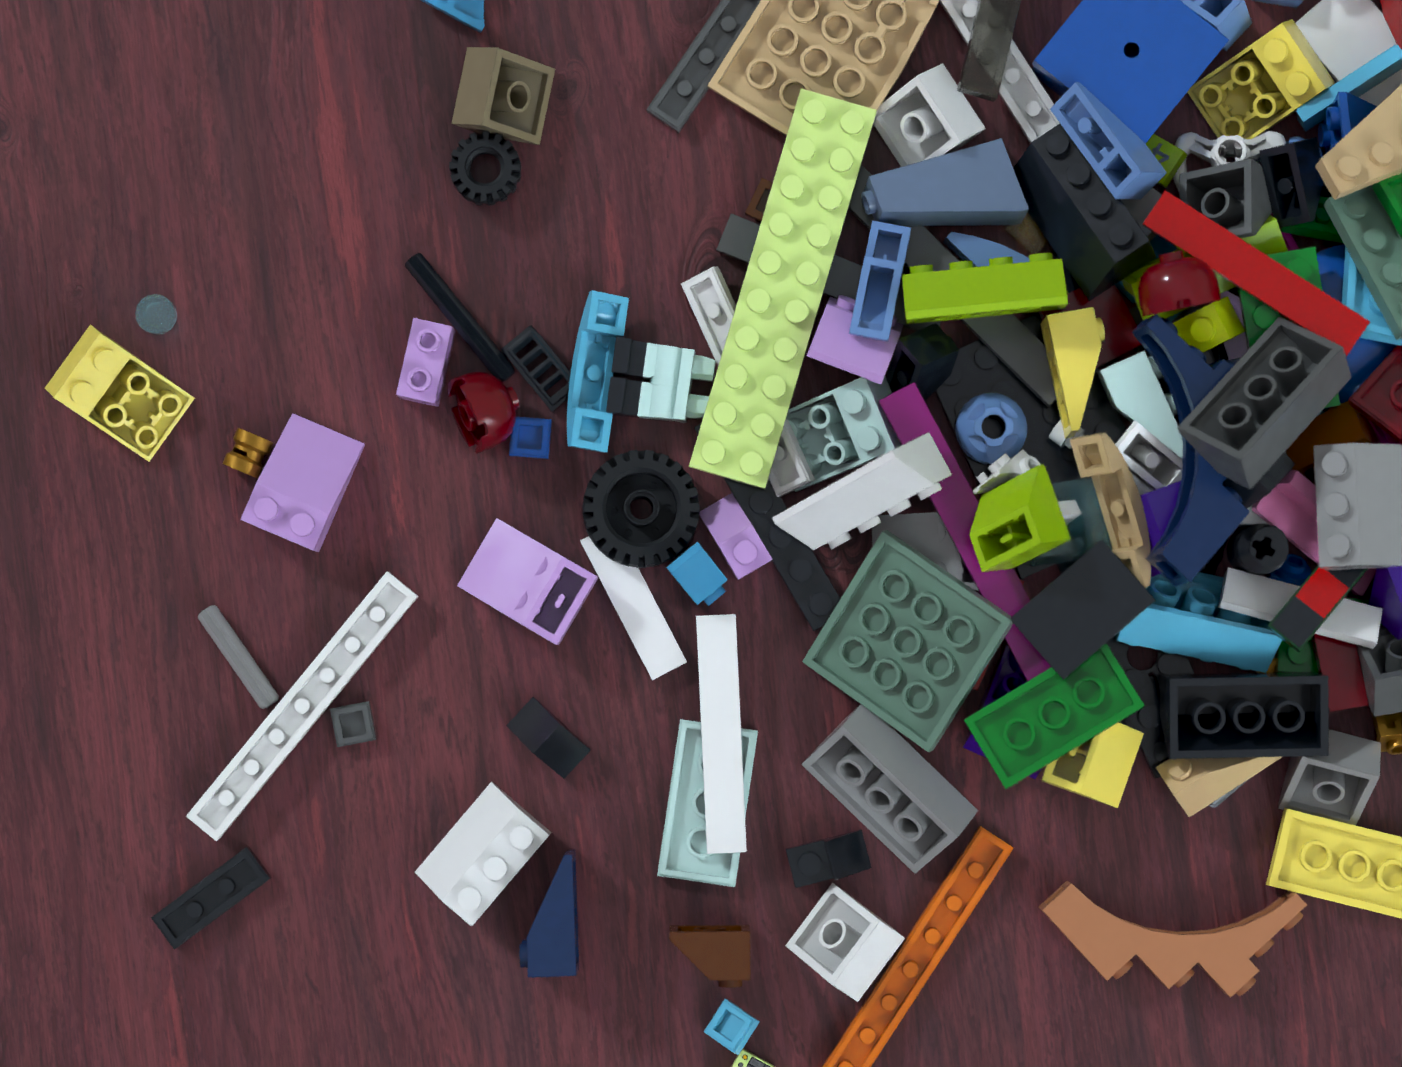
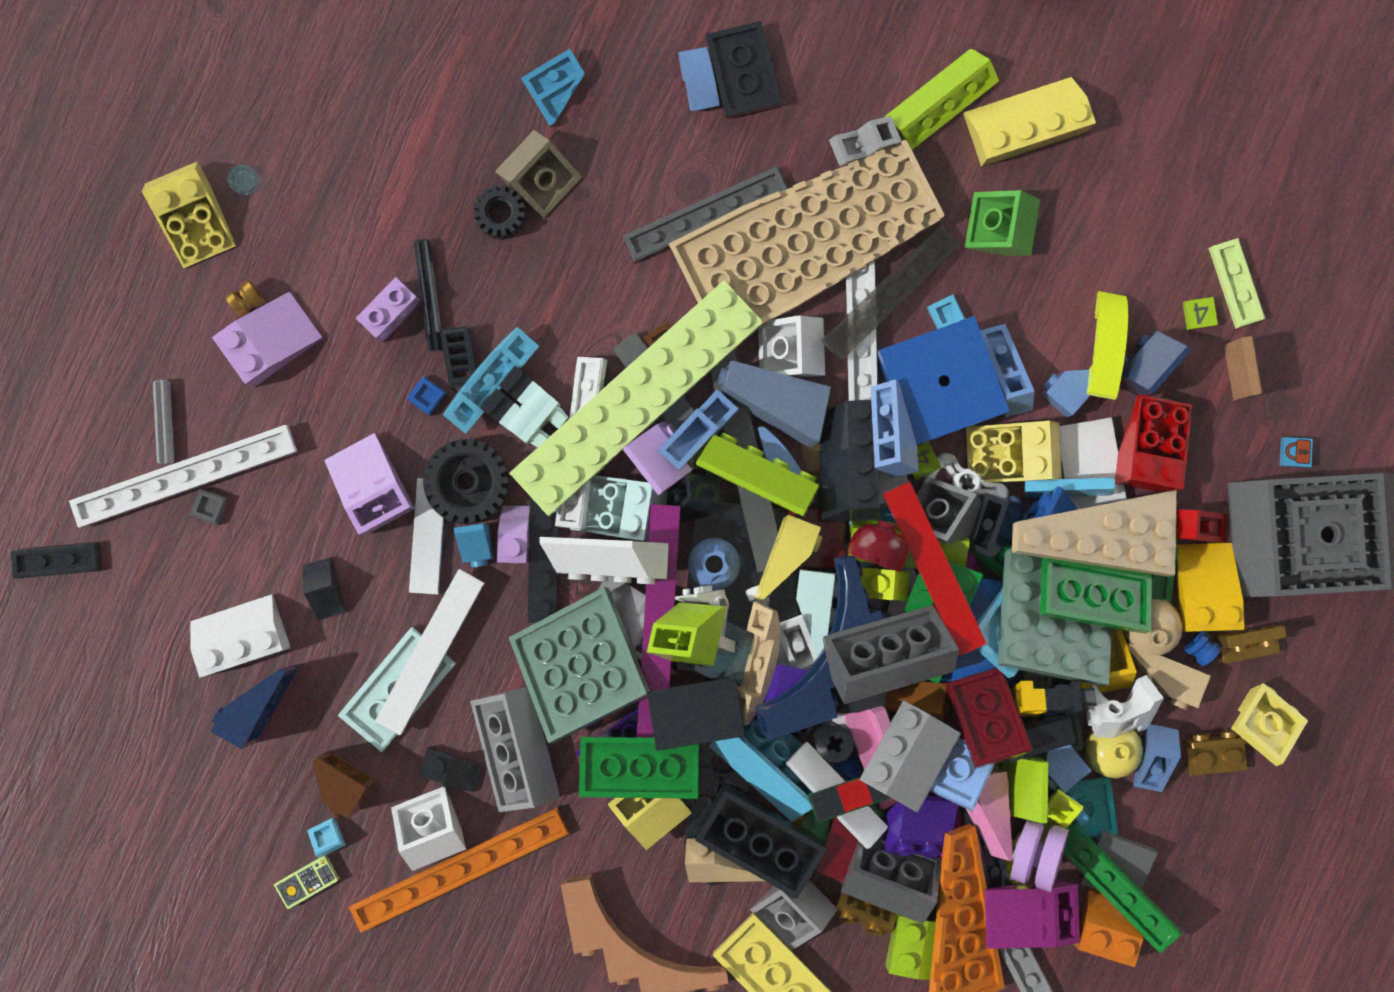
camera: 35 degrees right, 0 degrees up
(484, 409) = (407, 360): dark red cylinder -> none

